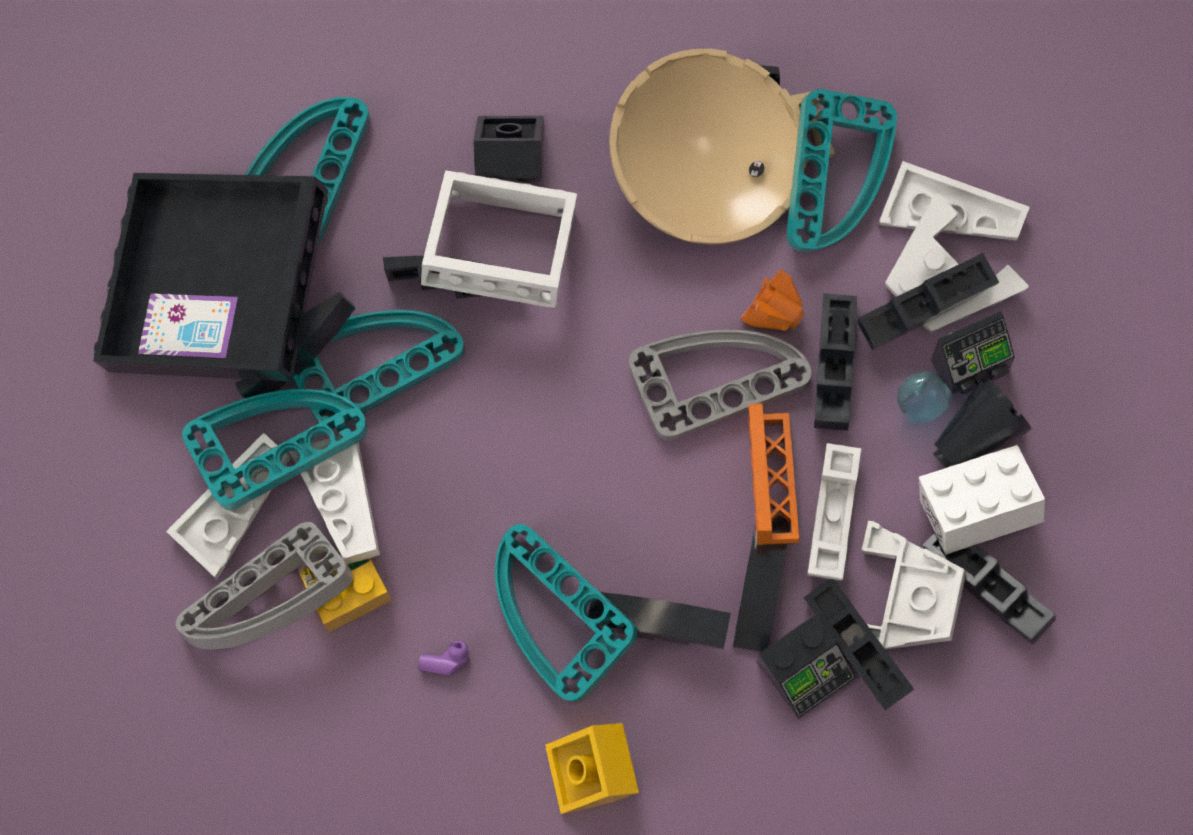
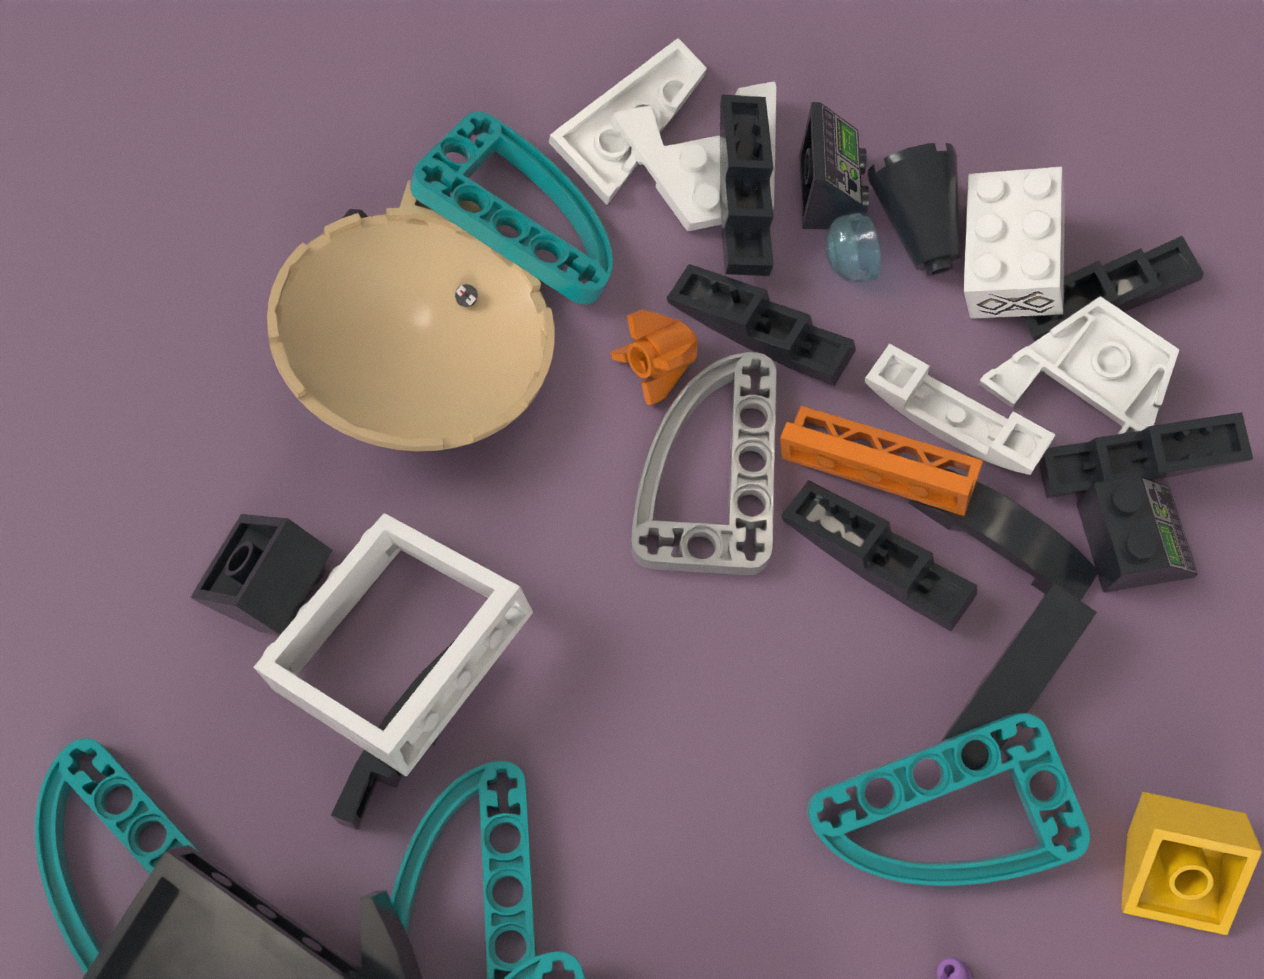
camera: 75 degrees left, 5 degrees down
(706, 504) = (878, 555): none -> black slope

